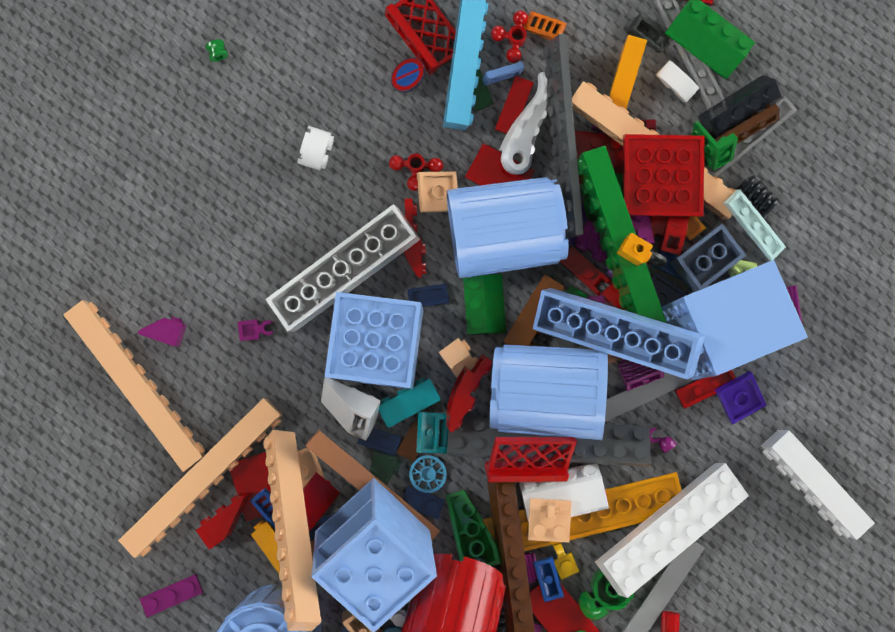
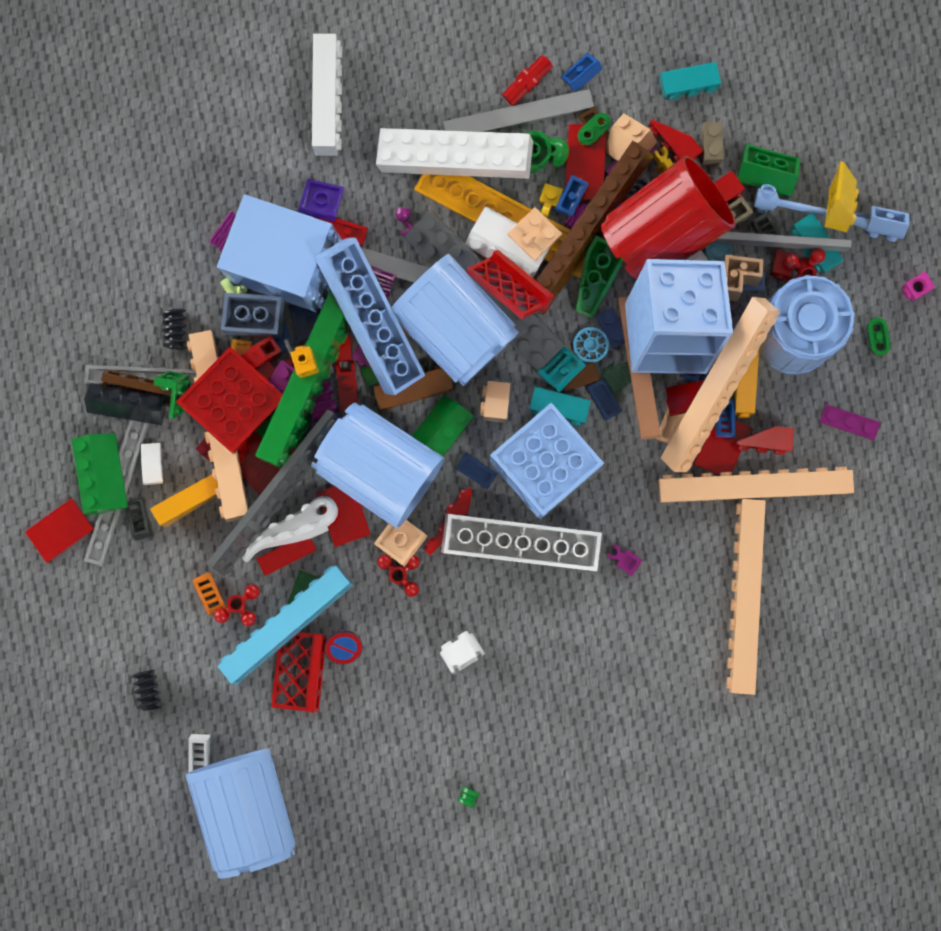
camera: 140 degrees left, 0 degrees up
(165, 330) = (690, 616): magenta slope -> none
(350, 407) = (605, 437): white slope -> none
(460, 398) = (520, 373): red slope -> none
(503, 73) = (273, 584): medium blue tile -> none
(754, 225) = (197, 309): light aqua tile -> none

